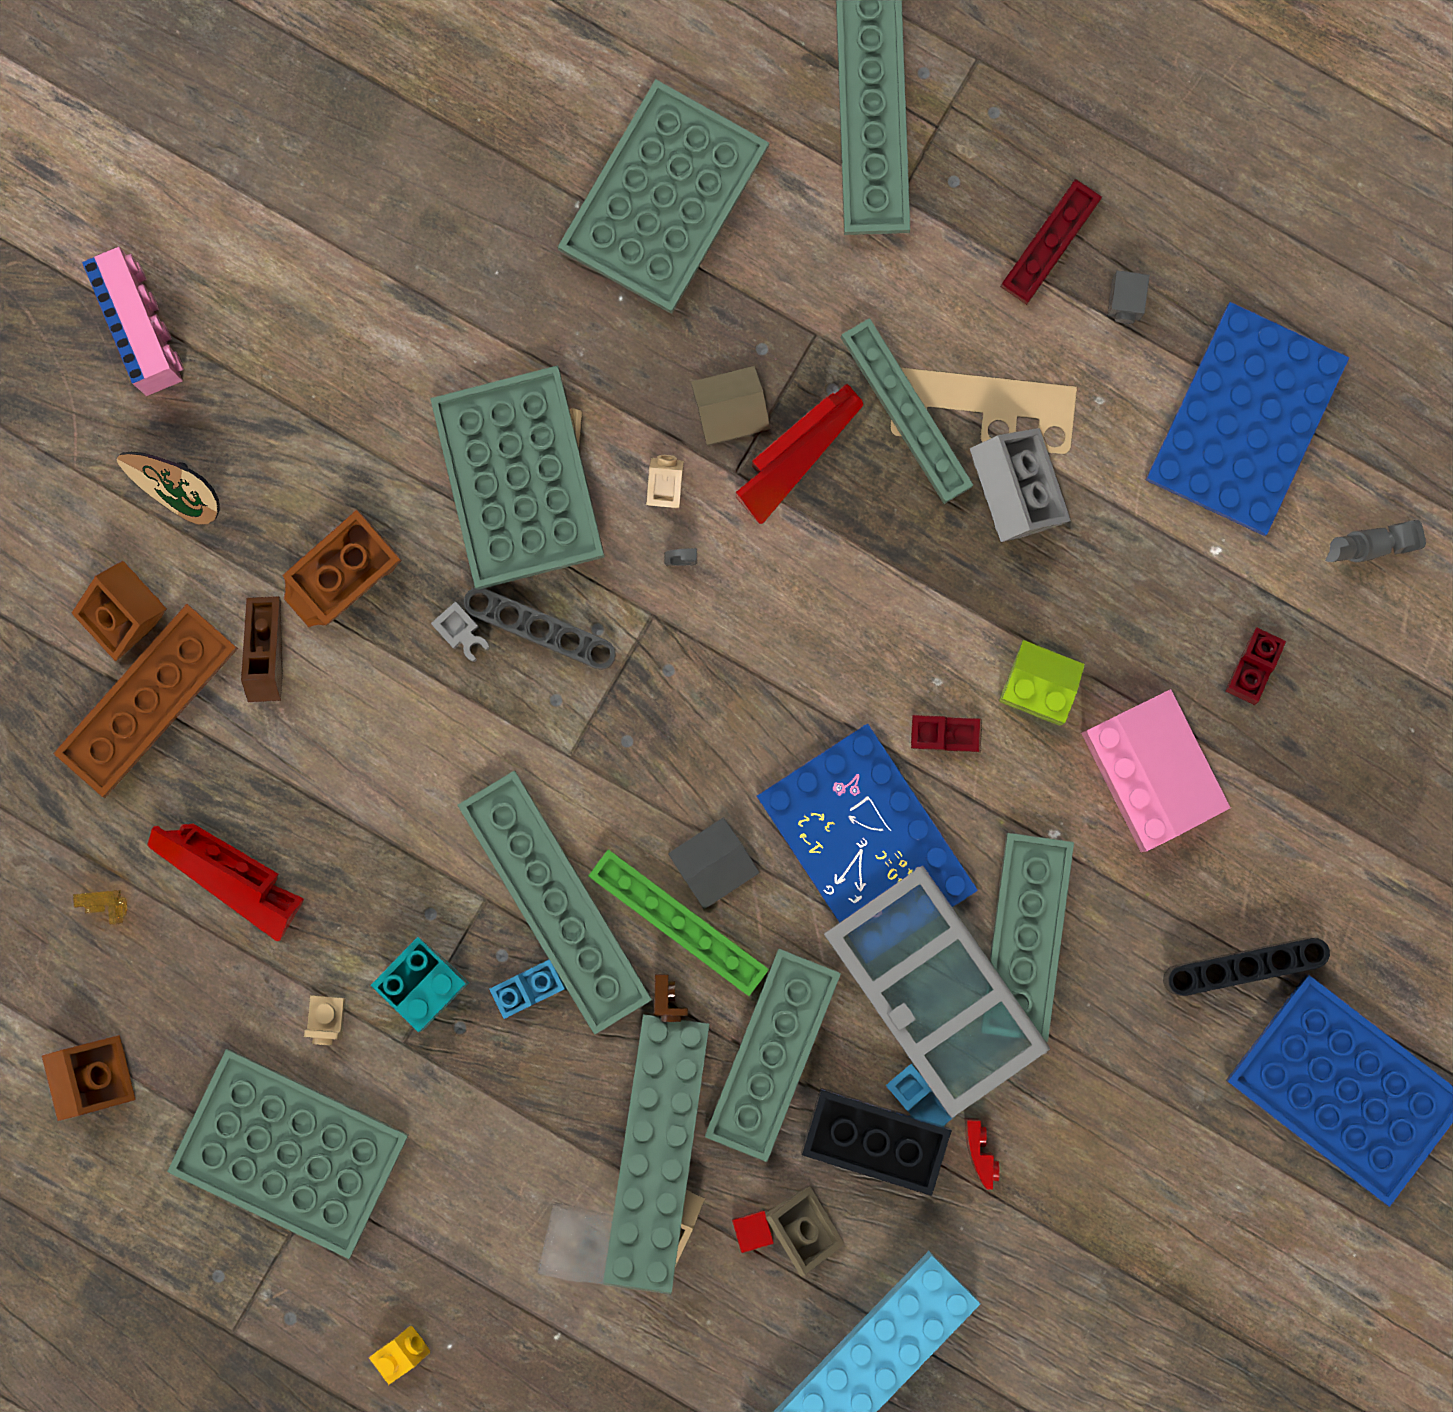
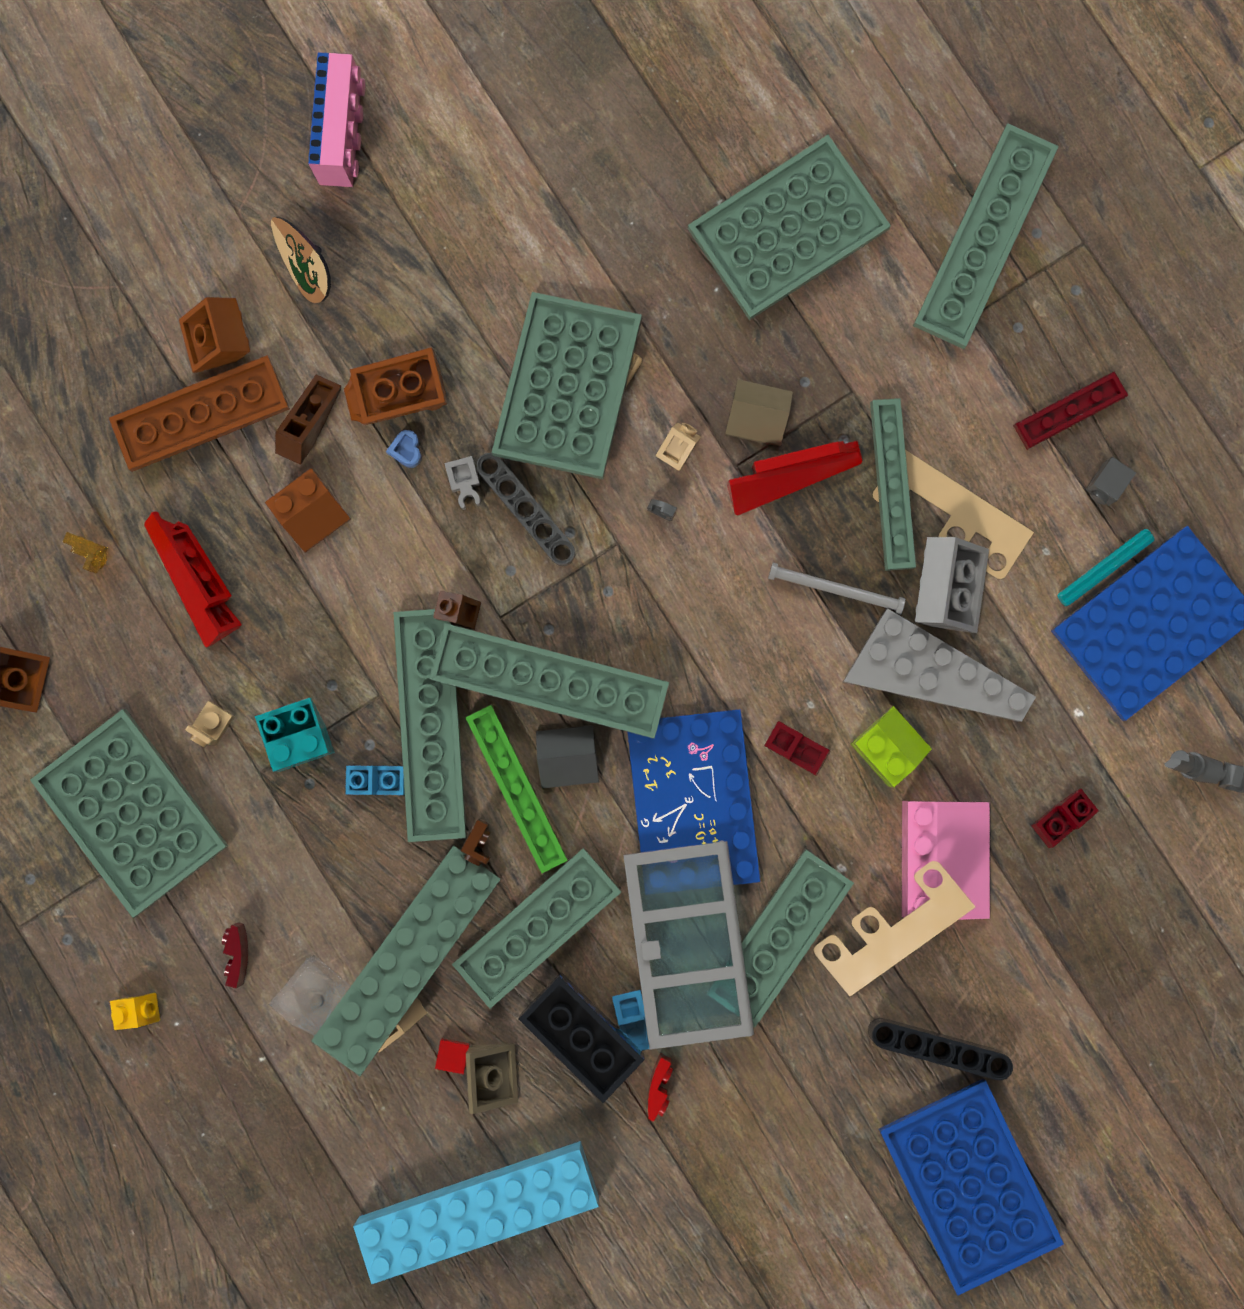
camera: 30 degrees right, 0 degrees up
(313, 744) = (307, 510): none -> dark orange slope
(381, 629) = (405, 449): none -> medium blue tile
(471, 1232) = (237, 946): none -> dark red slope
(522, 768) = (457, 609): none -> reddish brown bracket
(656, 793) = (549, 680): none -> sand green plate
(903, 548) = (836, 588): none -> light grey bar
(1032, 584) = (922, 667): none -> light grey wing
(1145, 883) = (895, 943): none -> tan piece
(1168, 386) = (1105, 567): none -> teal axle

